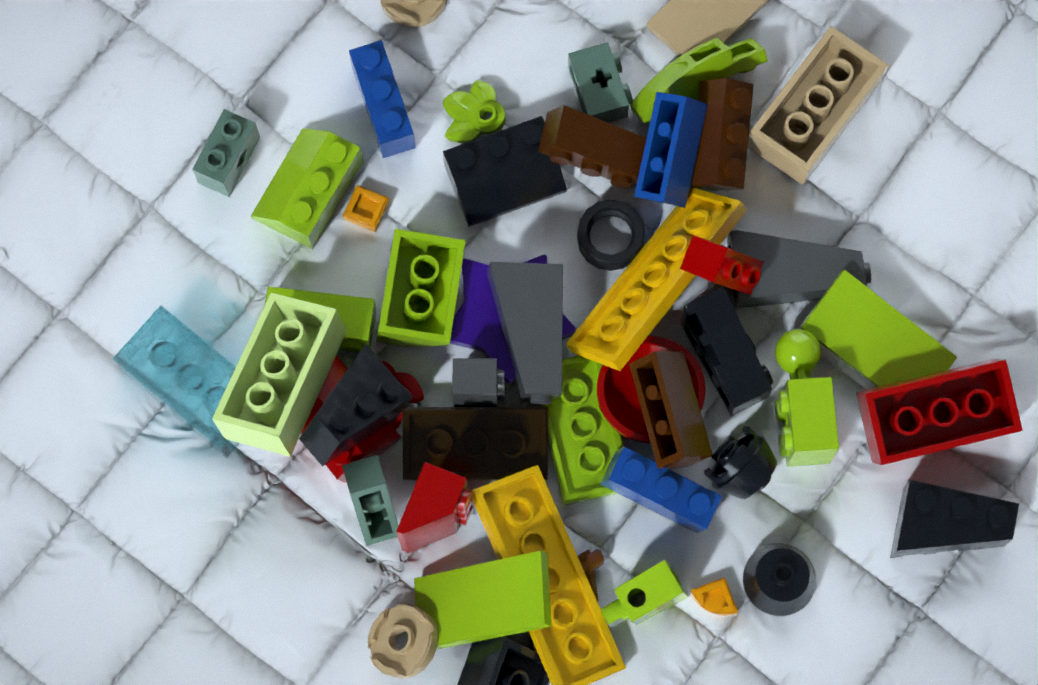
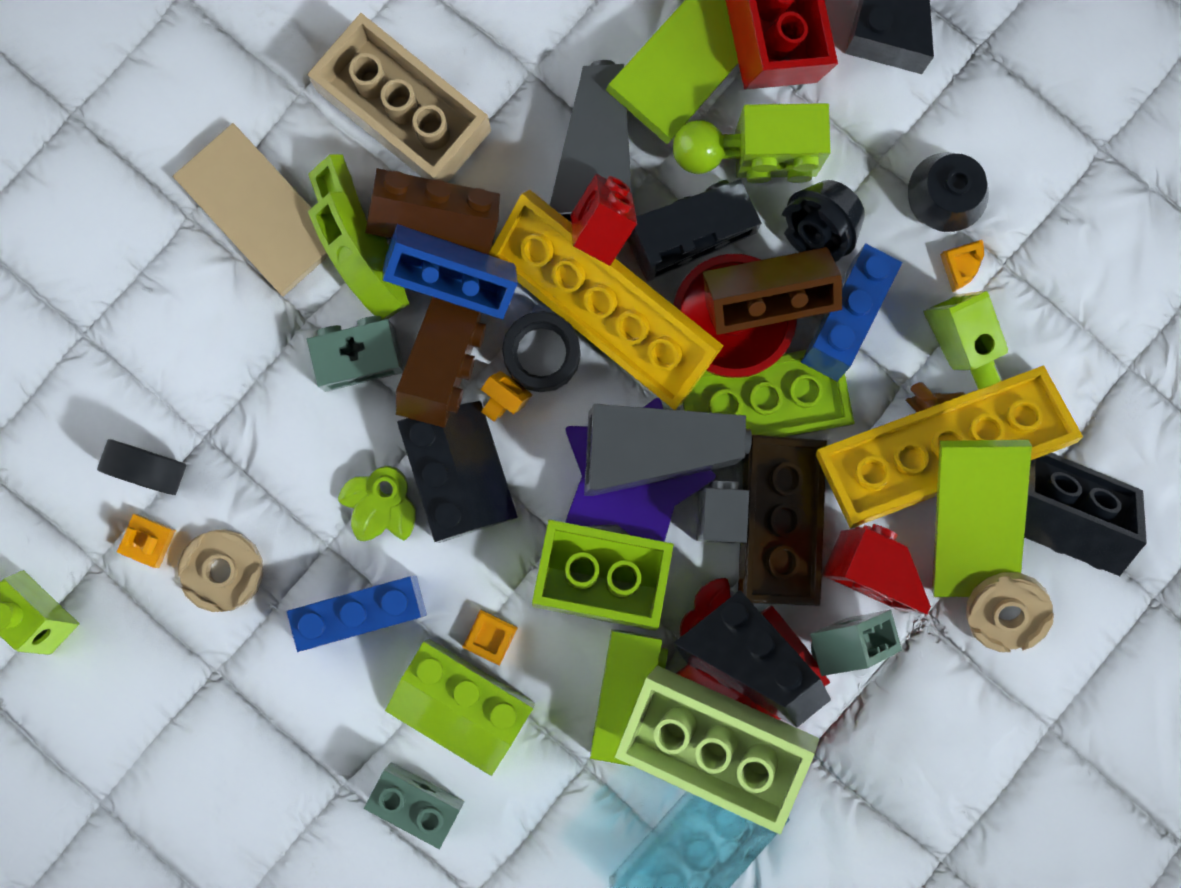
camera: 90 degrees left, 10 degrees up
(570, 205) = (504, 395): none -> light orange tile

